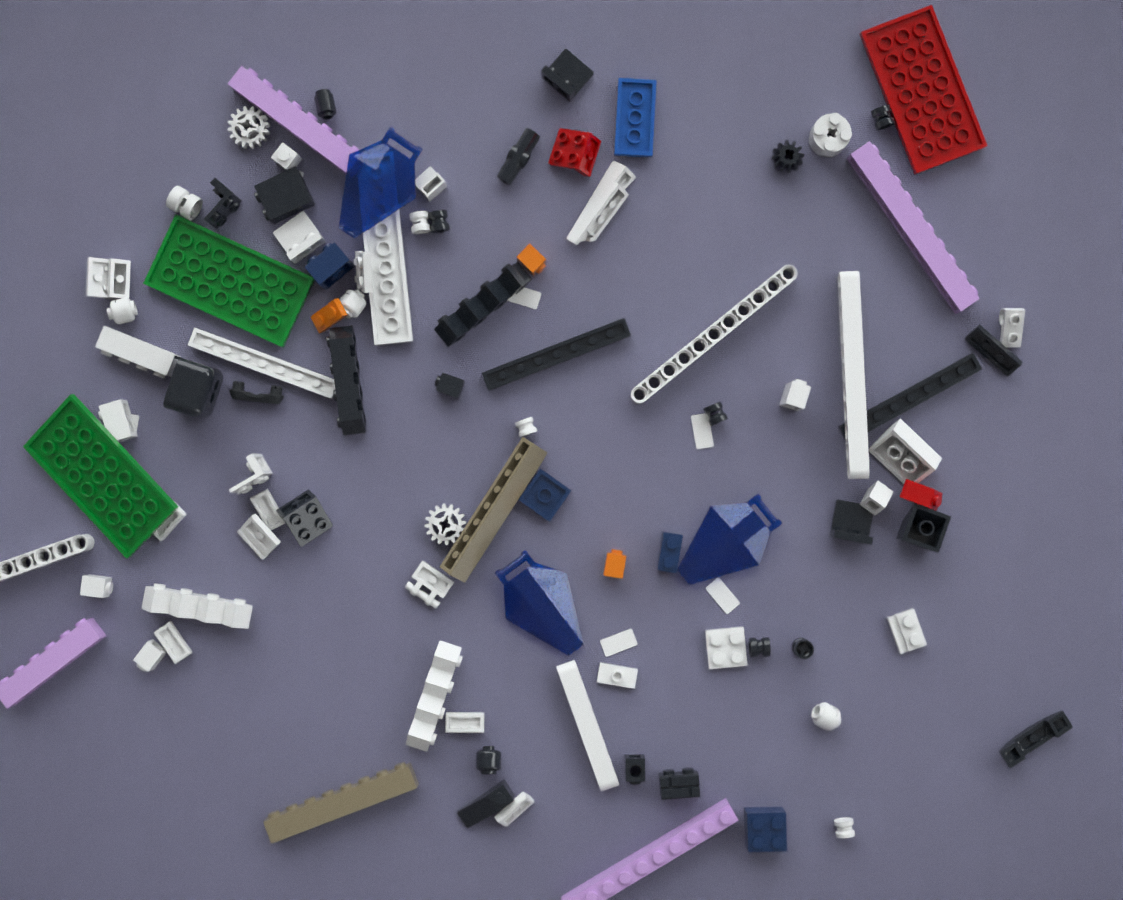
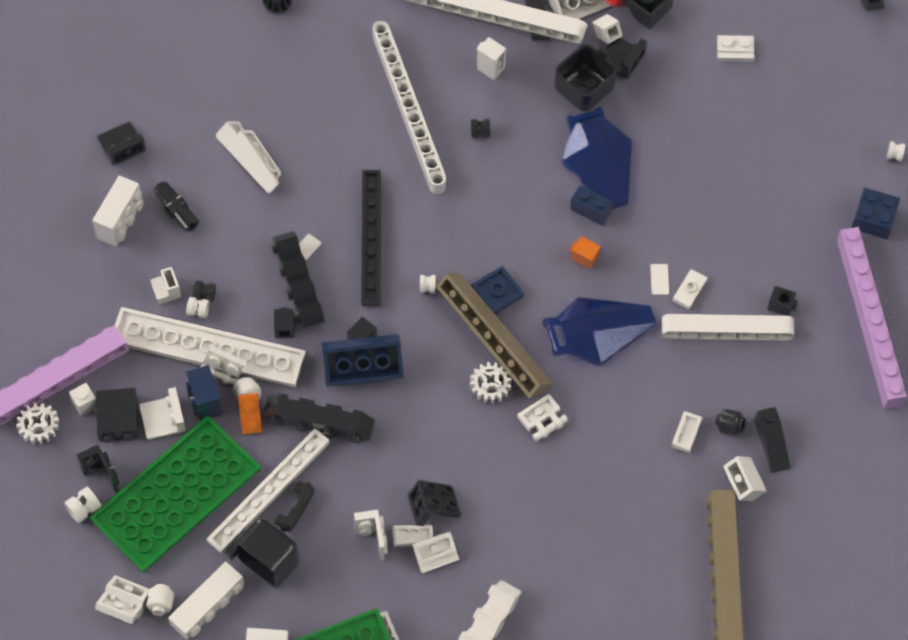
camera: 70 degrees left, 25 degrees down
(325, 104) = (48, 349): black brick -> none
(377, 183) = (148, 322): clear blue windscreen -> none
(417, 398) = (362, 360): none -> dark blue brick
(433, 793) = (744, 478): none -> white brick
(434, 308) = (284, 323): none -> black brick
(434, 693) = (659, 453): white brick -> none
(486, 104) = (118, 211): none -> white brick
(514, 809) = (786, 416): white plate -> none
(532, 260) = (275, 225): orange brick -> none
(575, 151) = (191, 160): red bracket -> none
(635, 117) = (186, 102): blue plate -> none
(679, 784) = (810, 269): black brick -> none
(702, 431) = (491, 147): white sticker -> none
(722, 595) = (648, 180): white sticker -> none
(726, 647) = (697, 192): white plate -> none
(759, 646) = (706, 164): black wheel -> none
(804, 651) = (720, 130): black wheel -> none
(812, 484) = (578, 67): none -> black piece
(826, 716) = (789, 132): white head -> none

